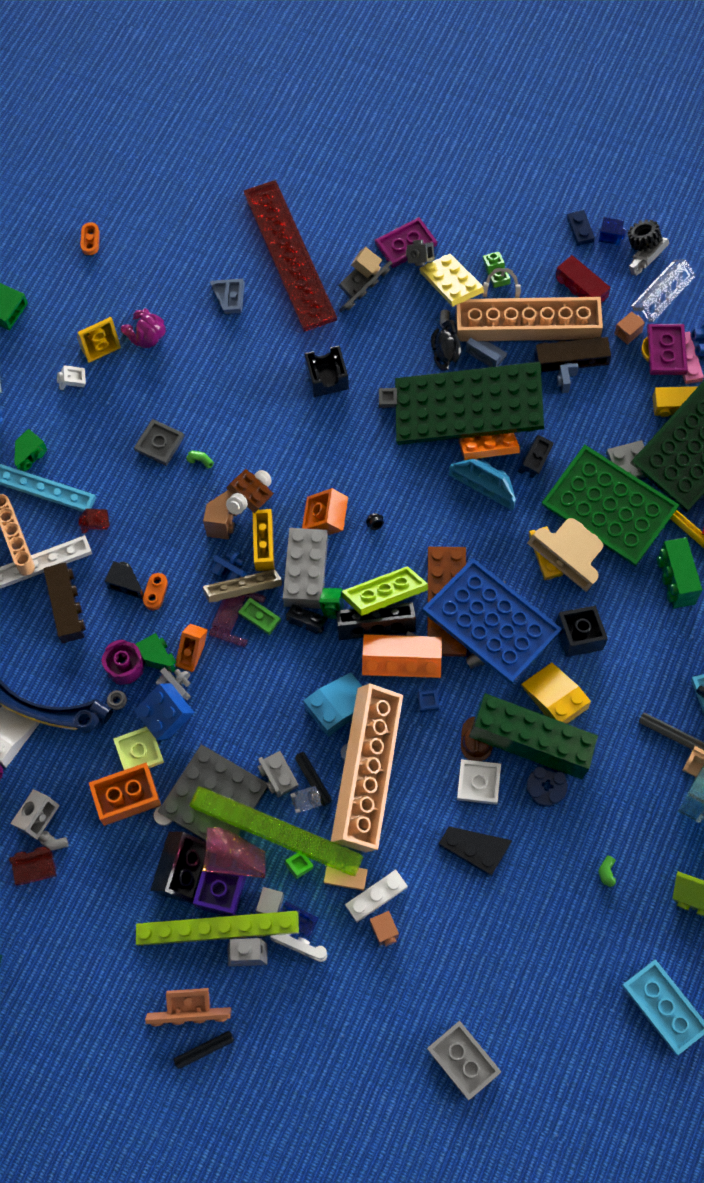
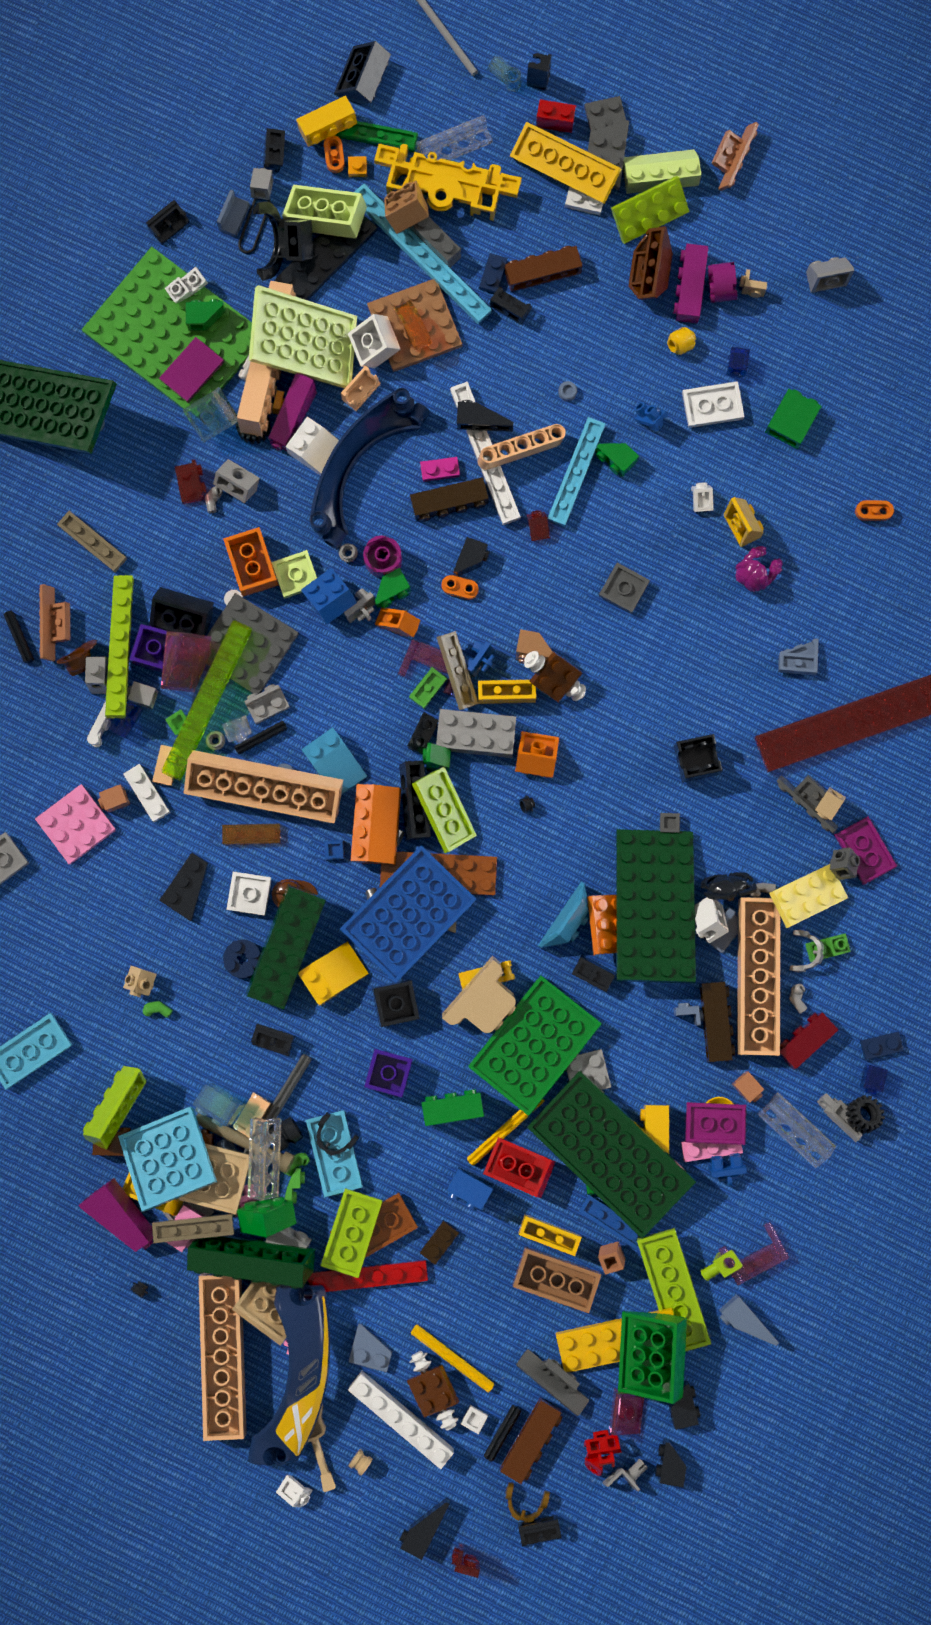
camera: 90 degrees right, 15 degrees up
(31, 615) = (440, 469): none -> dark pink plate
(96, 971) = (92, 541): none -> dark tan plate
(200, 456) = (607, 629): bright green arm -> none
(227, 976) = (76, 660): none -> reddish brown piece
(317, 819) = (215, 734): none -> light grey plate
(413, 972) = (75, 824): none -> bright pink plate
(415, 784) = (251, 834): none -> clear orange plate
(480, 355) = (710, 919): none -> white brick
(537, 292) = (796, 996): none -> light grey arm
(581, 888) = (139, 981): none -> tan brick
(627, 750) = (272, 1039): none -> black hinge
(651, 634) = (388, 1073): none -> dark purple brick

